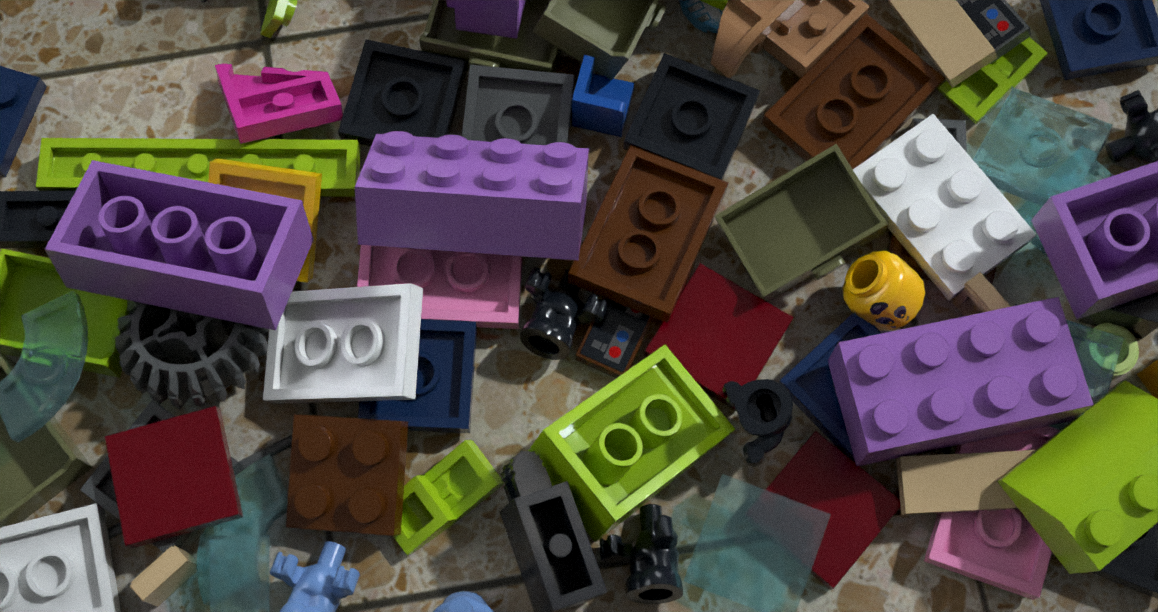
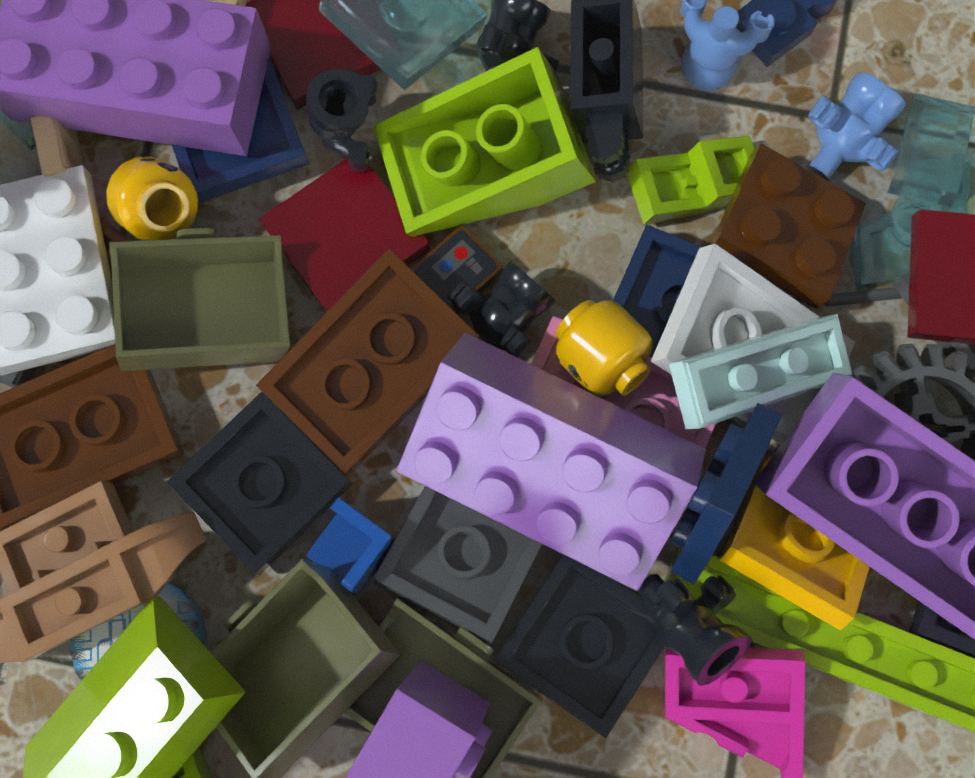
camera: 155 degrees left, 5 degrees up
(329, 121) = (692, 627): none -> black piece
(331, 235) = (722, 491): none -> dark blue plate
(332, 319) = (759, 371): none -> light aqua tile
(464, 296) = (603, 348): none -> yellow head

